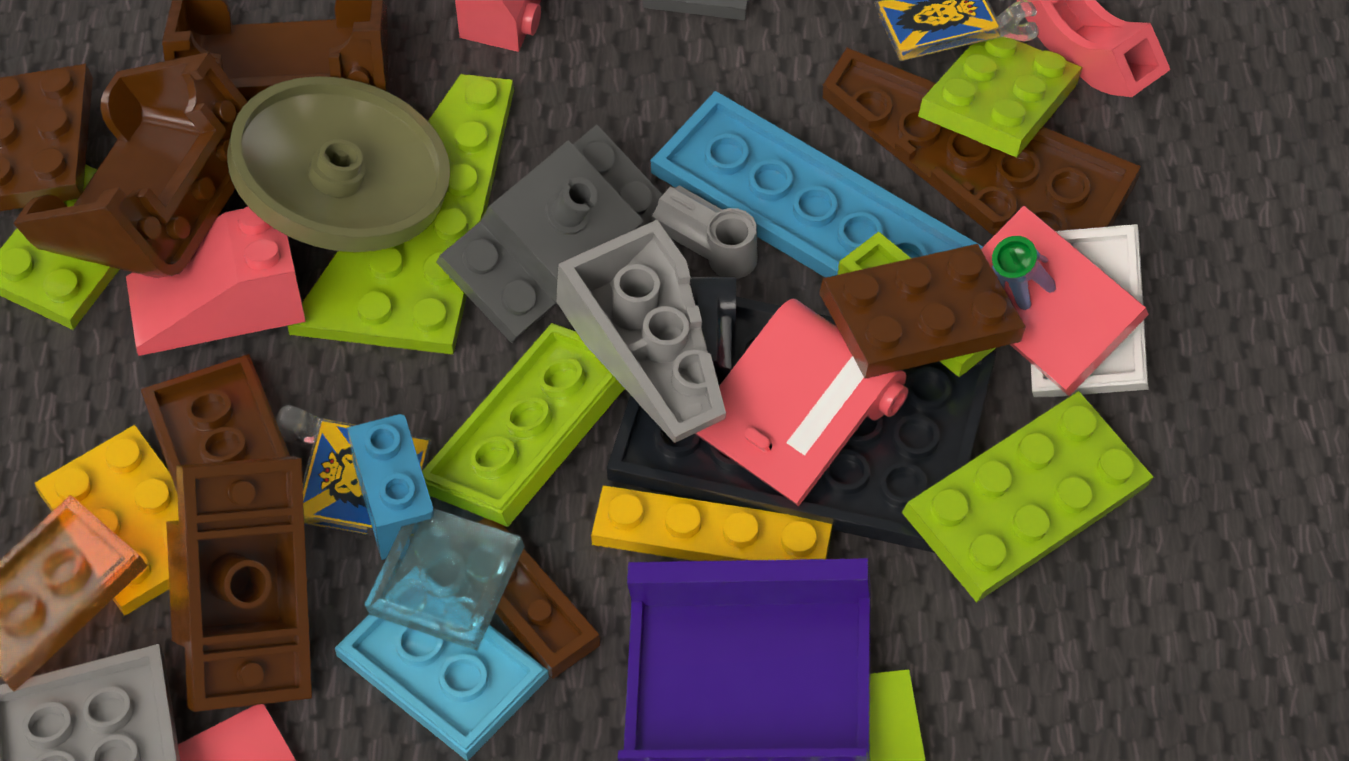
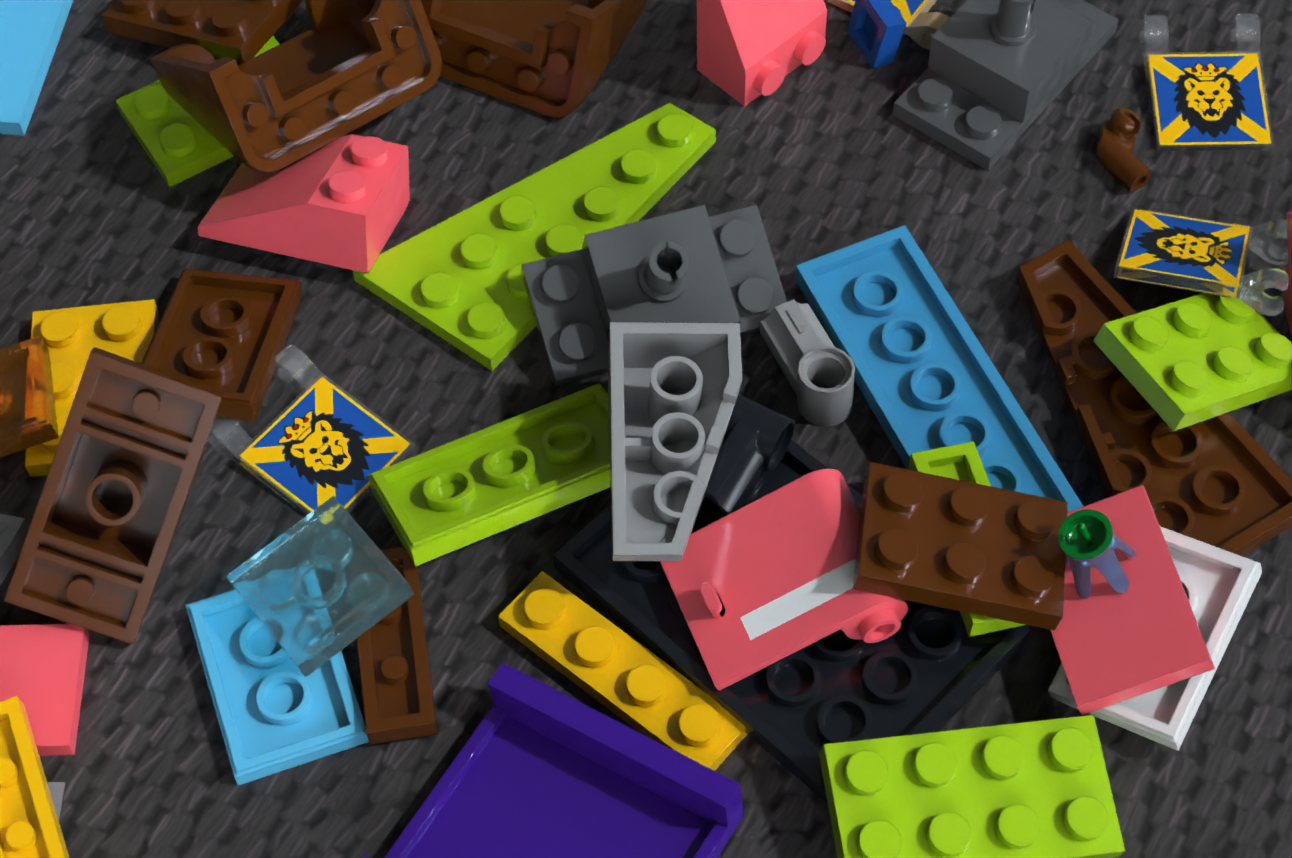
camera: 30 degrees right, 0 degrees up
(338, 164) = (481, 134): olive dish -> none
(389, 477) = (326, 458): dark azure bracket -> none

